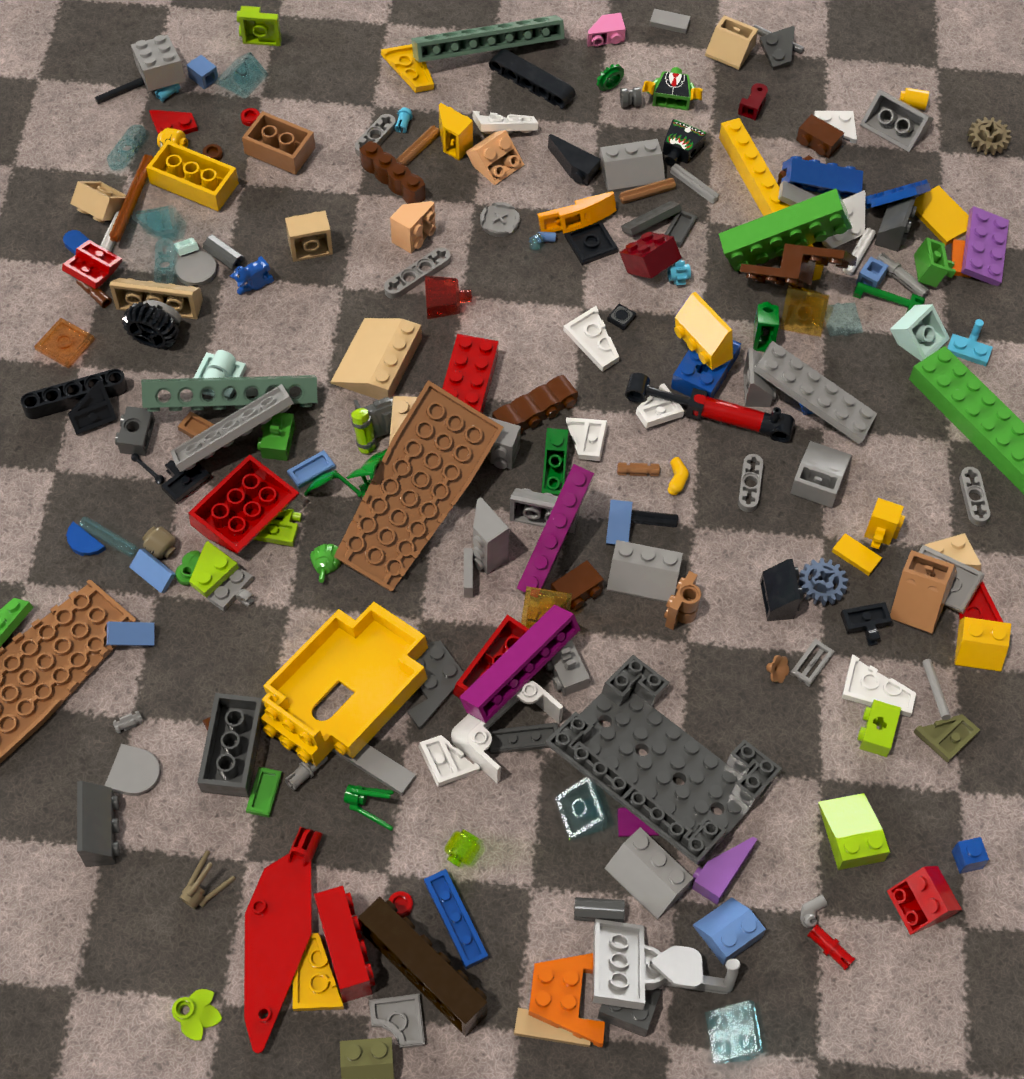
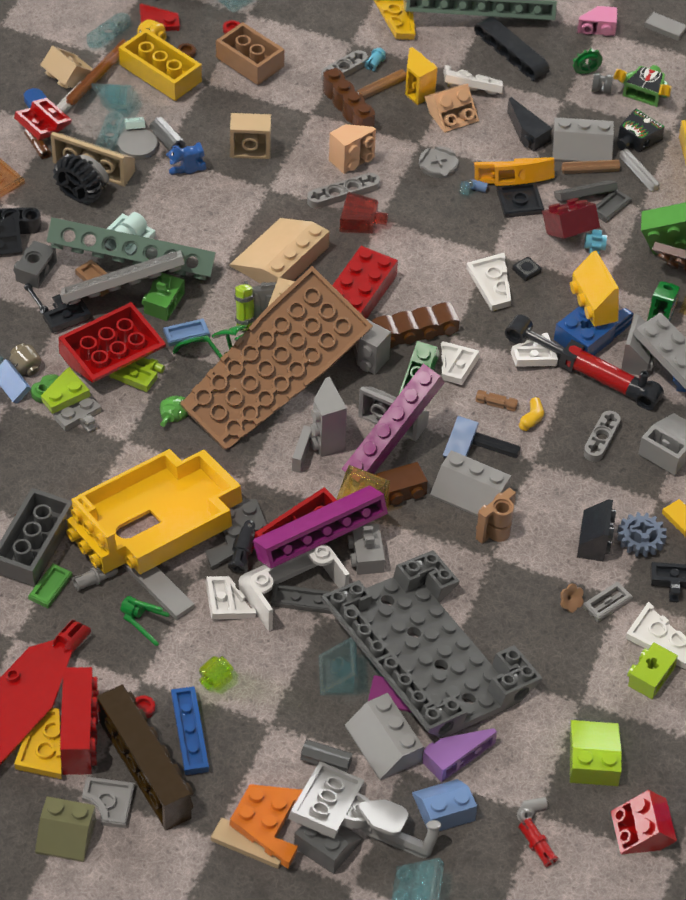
camera: 15 degrees right, 10 degrees down
(445, 700) = (242, 548): none -> black piece

